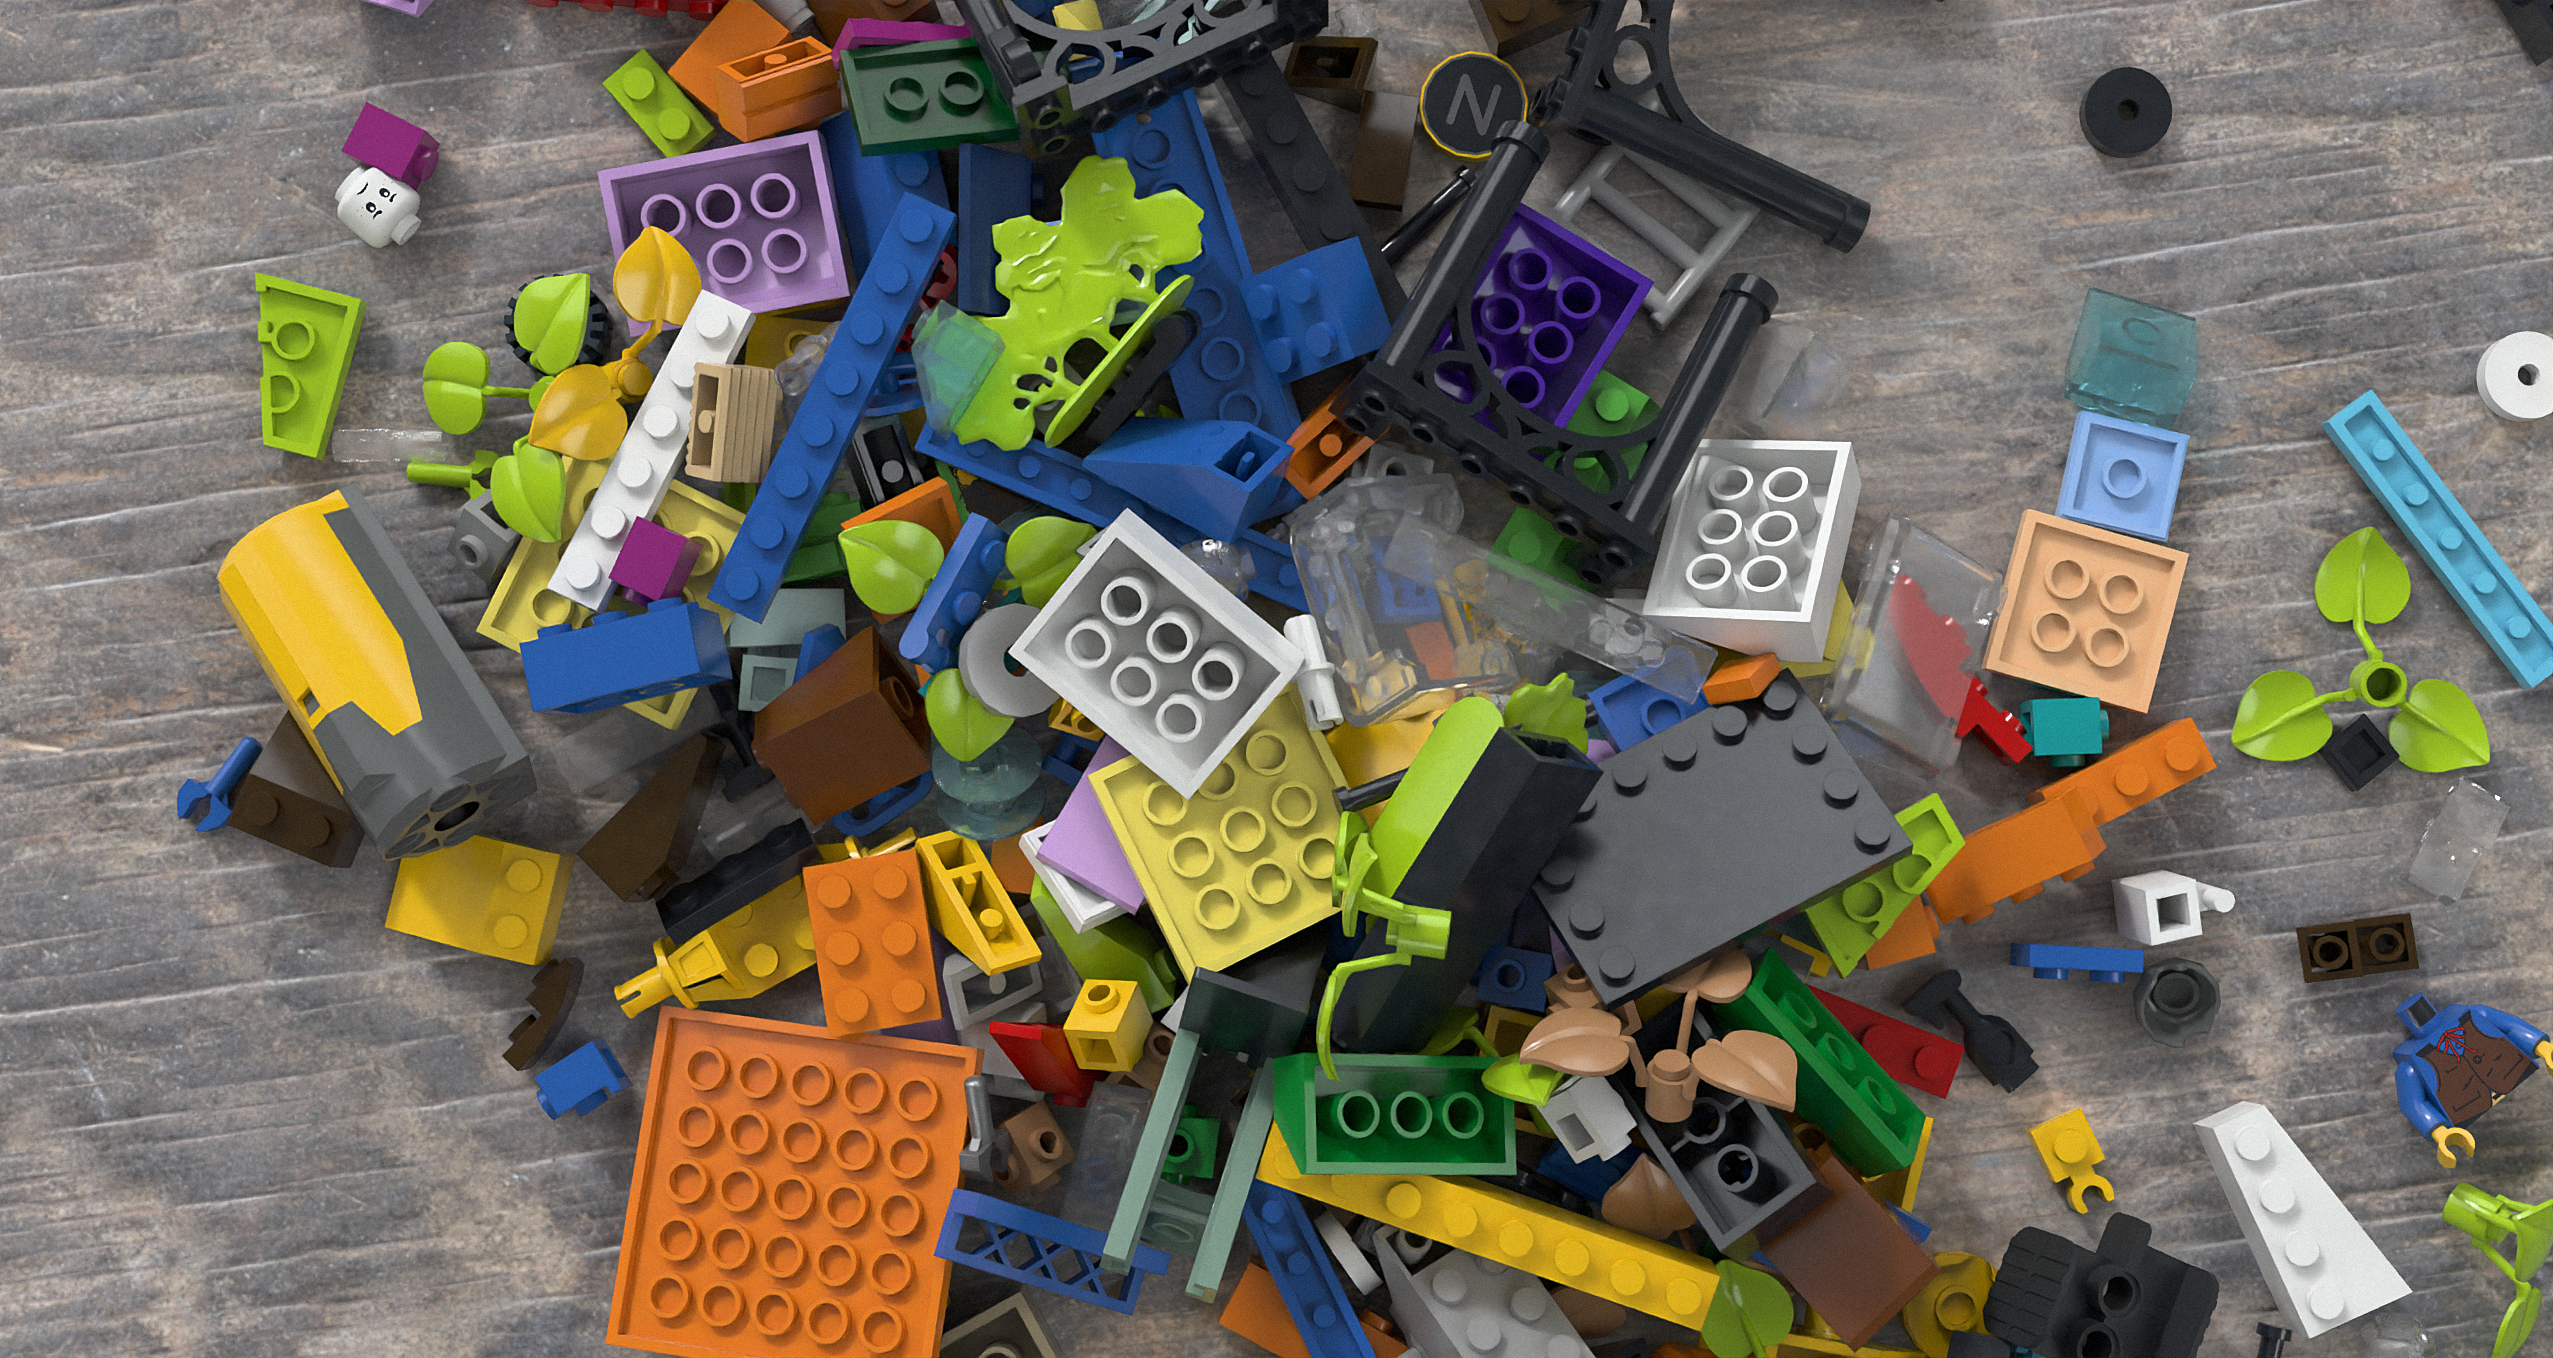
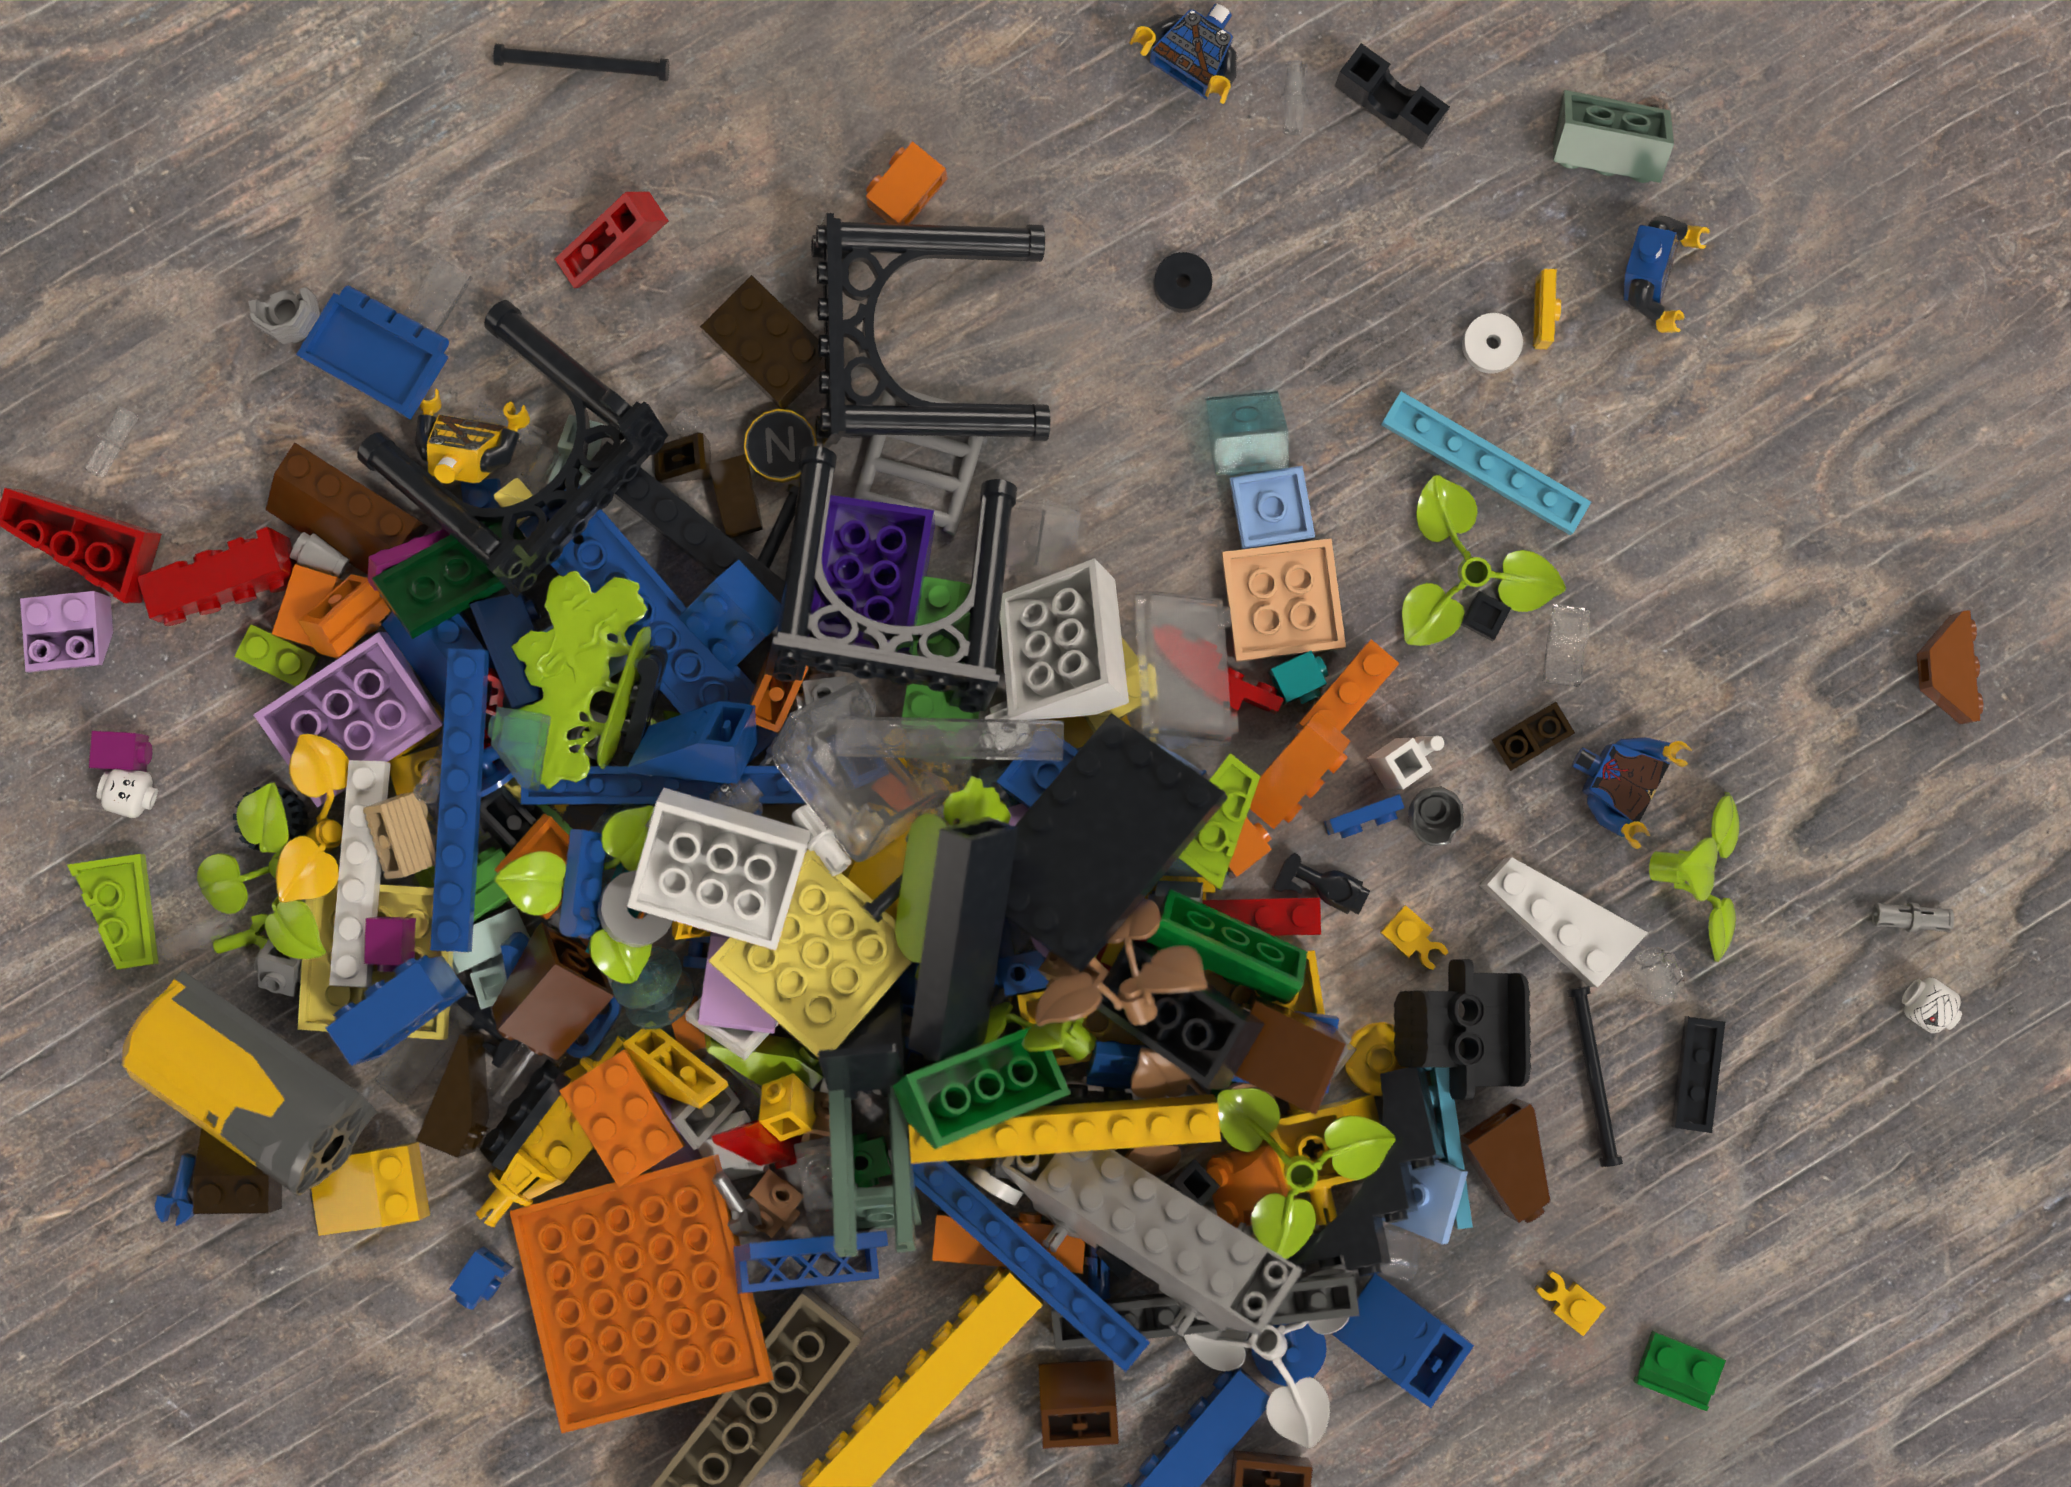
camera: 20 degrees left, 0 degrees up
(553, 998) = (441, 1235): dark brown slope -> none
(1410, 927) = (936, 974): lime plant -> none
(1589, 1118) = (1099, 1040): white brick -> none
(1741, 679) = (1085, 732): orange tile -> none

